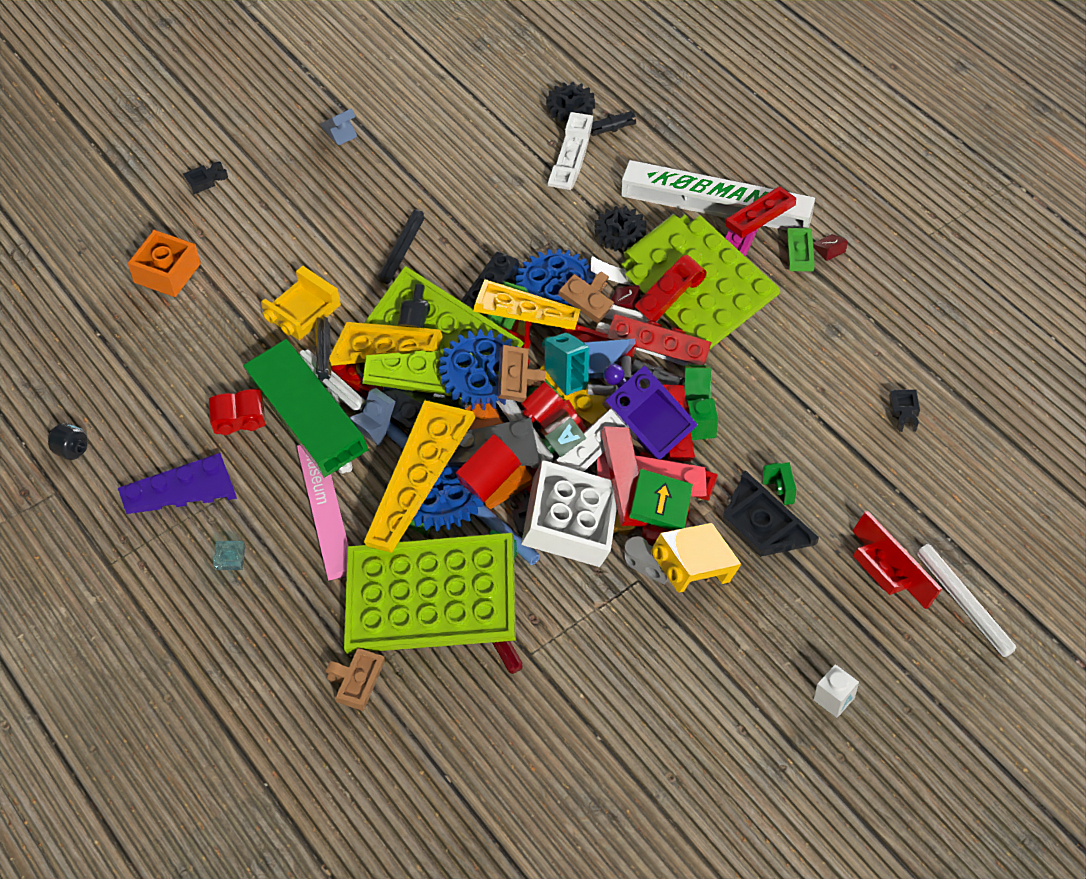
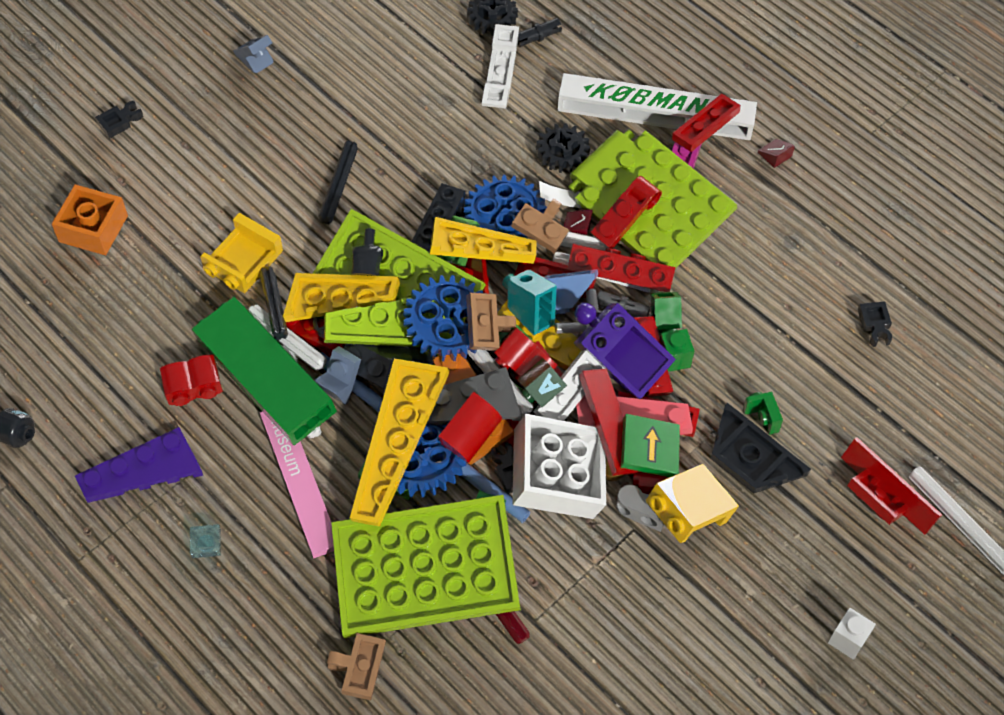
camera: 10 degrees left, 5 degrees up
(800, 249) = (747, 158): bright green plate -> none

